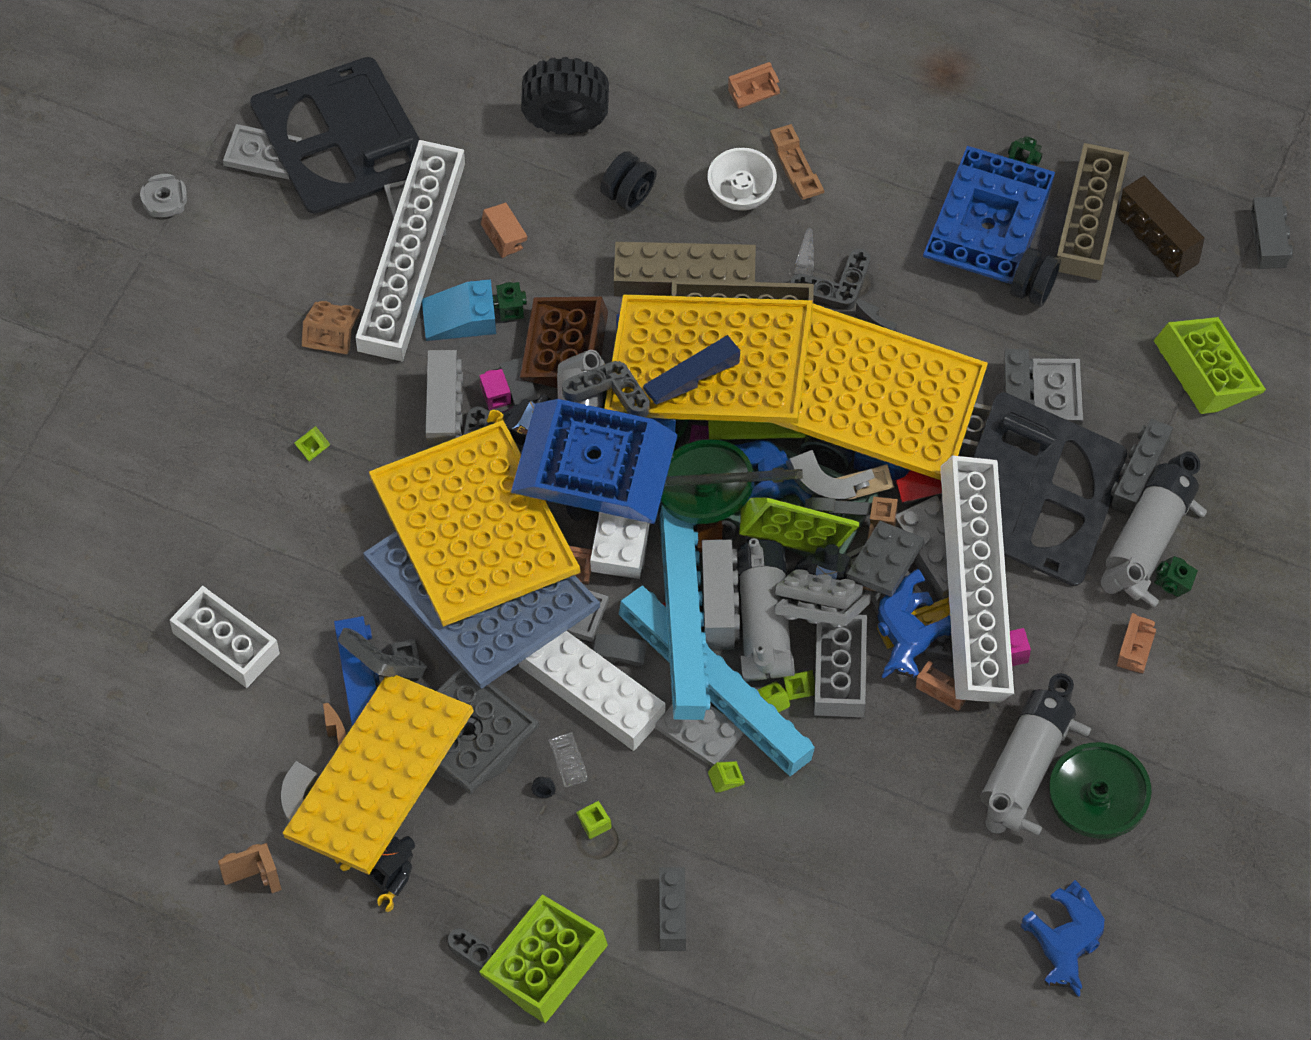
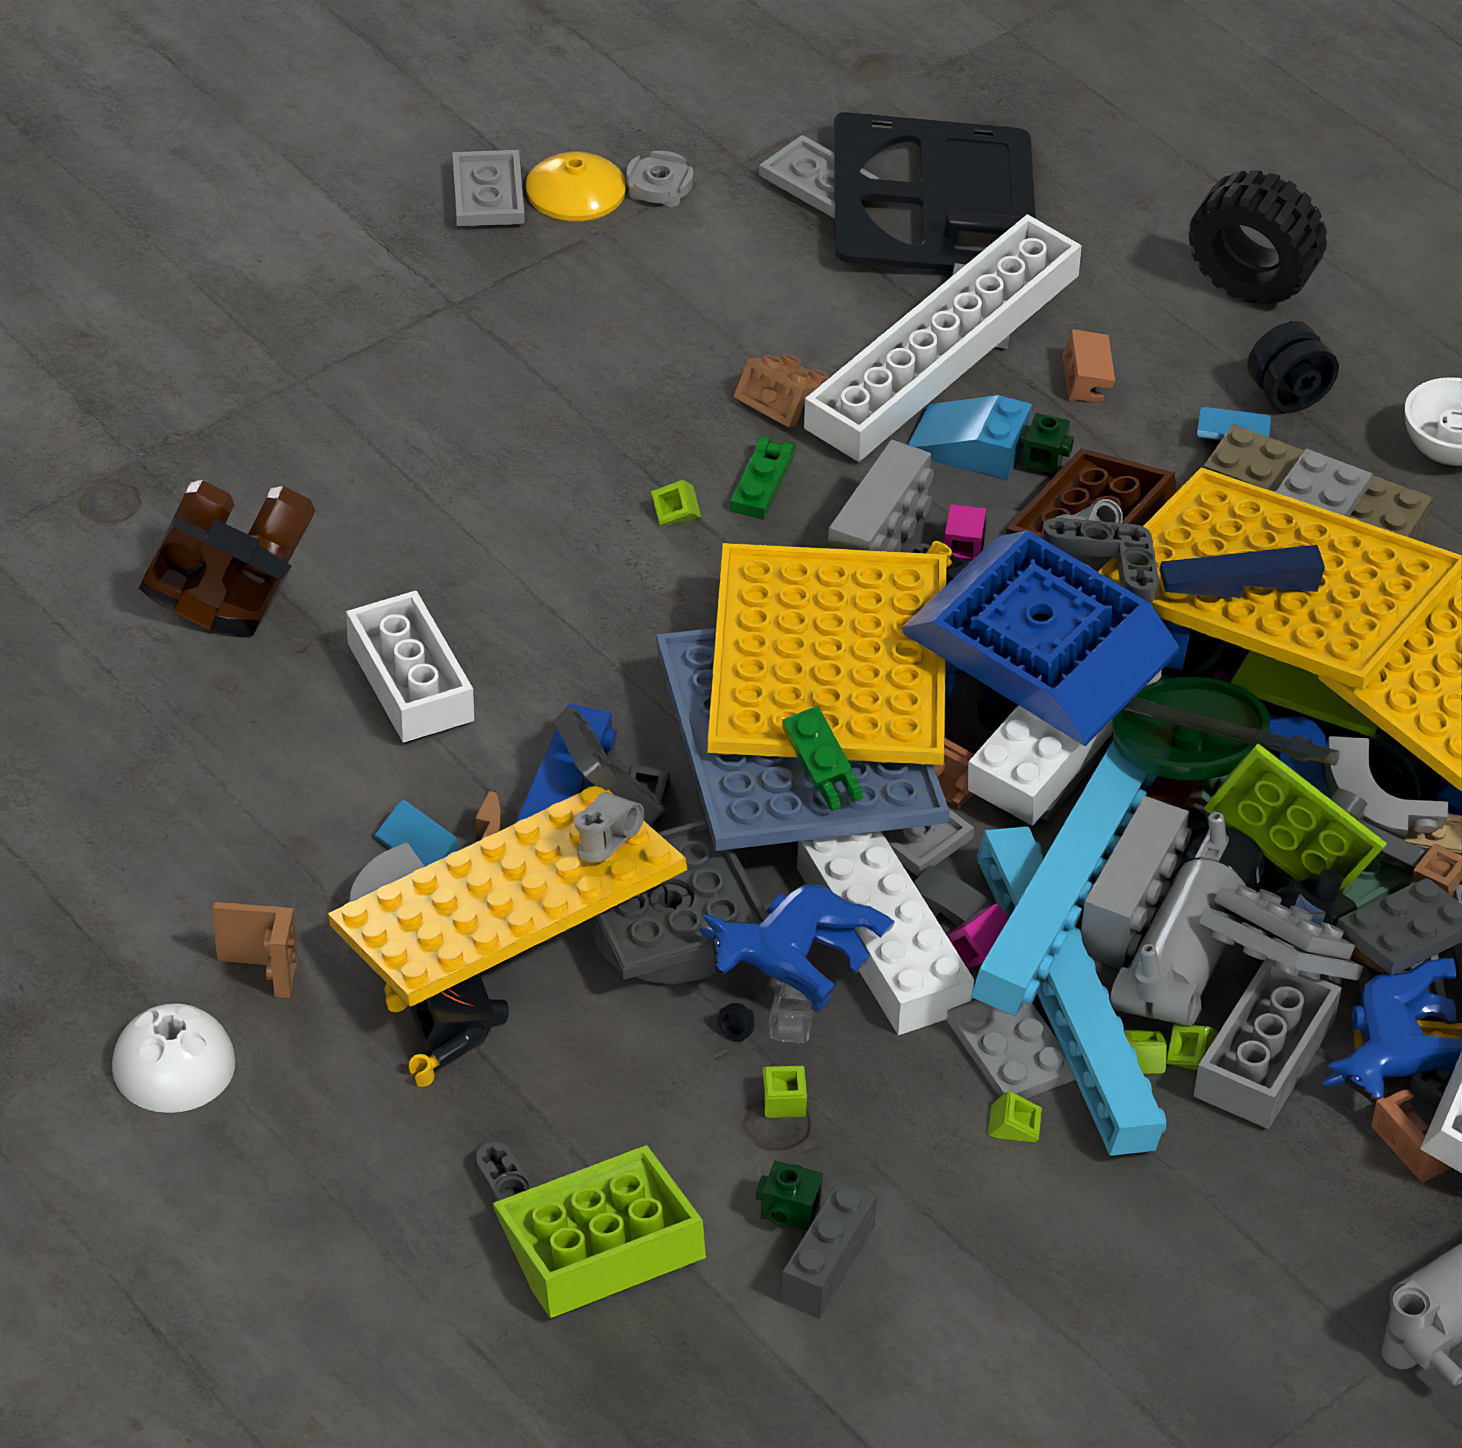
camera: 25 degrees right, 15 degrees down
(60, 251) = (488, 188): none -> light grey plate
(79, 622) = (239, 568): none -> reddish brown piece
(116, 232) = (575, 186): none -> yellow dish
(246, 973) = (173, 1059): none -> white piece
(288, 749) = (423, 834): none -> dark azure slope
(352, 400) = (762, 478): none -> green plate
(418, 707) = (607, 826): none -> light grey piece
(513, 602) = (821, 755): none -> green hinge
(552, 727) = (785, 936): none -> blue animal
(604, 238) = (1216, 422): none -> dark azure slope
(634, 886) = (790, 1195): none -> dark green brick
(651, 668) = (978, 934): none -> dark pink brick
(693, 271) = (1326, 483): none -> light grey plate

